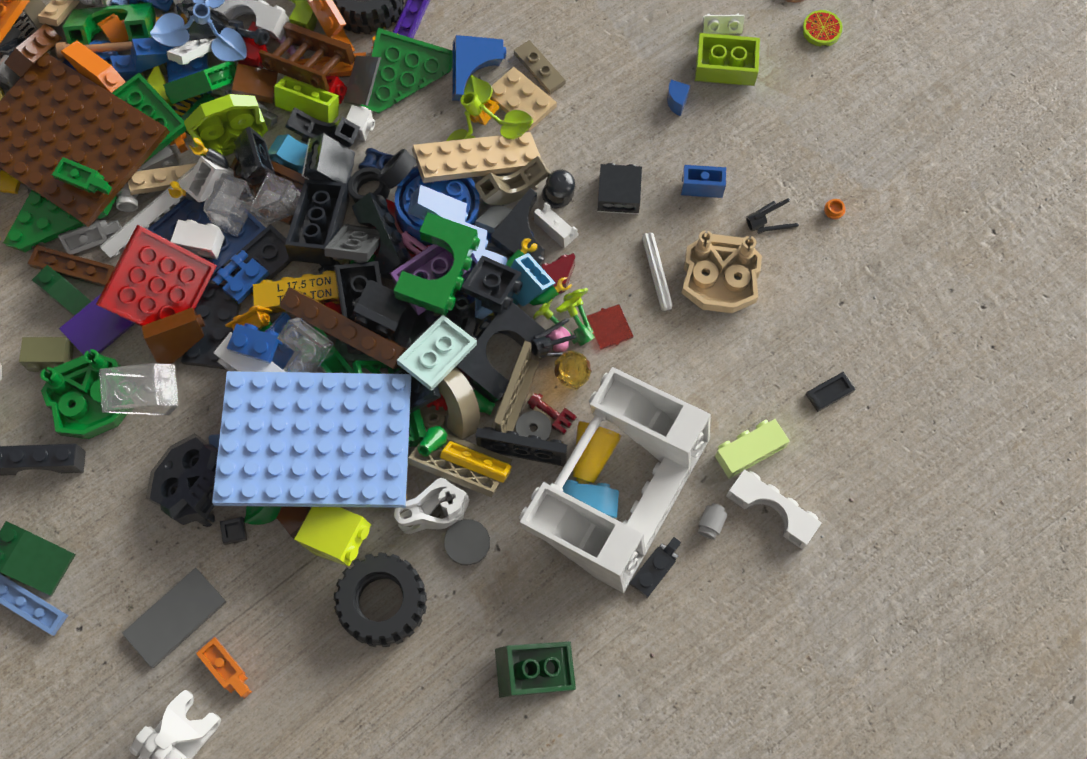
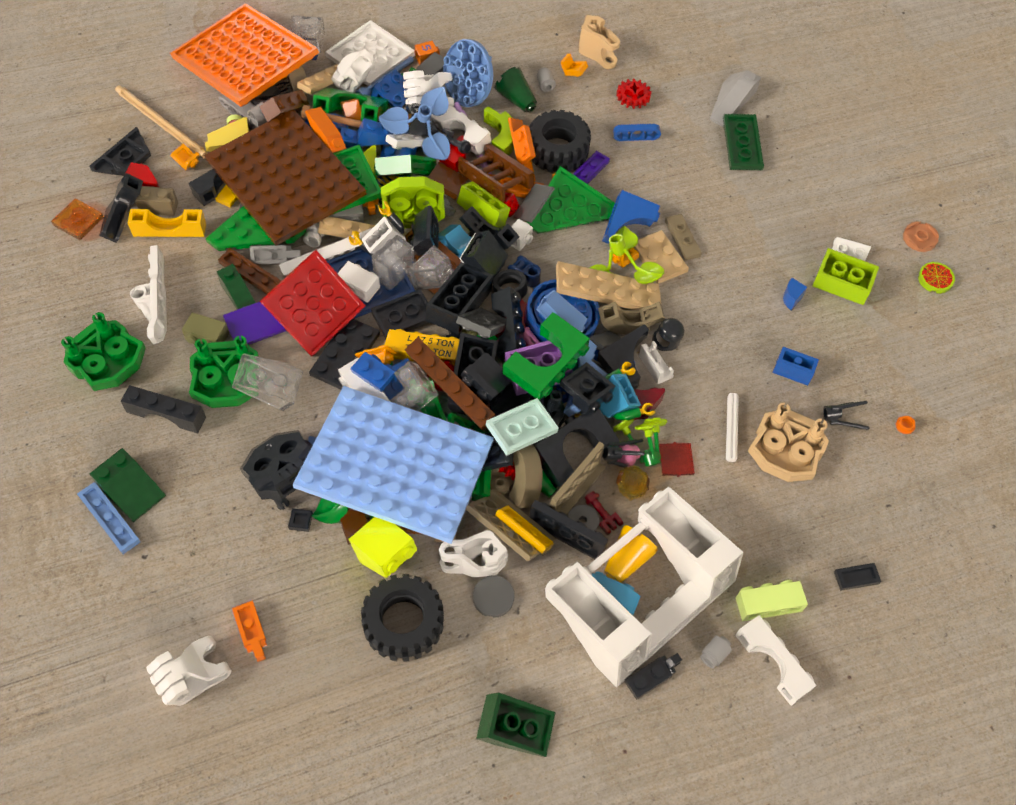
camera: 15 degrees right, 10 degrees down
(81, 177) = (285, 205): green hinge -> none
(173, 335) = (311, 347): reddish brown slope -> none
(174, 617) = (225, 574): dark grey tile -> none
(242, 283) = (380, 327): blue plate -> none
(397, 168) = (538, 275): black tyre -> none
(433, 440) = (494, 498): green cone -> none
(619, 188) = (720, 350): black piece -> none

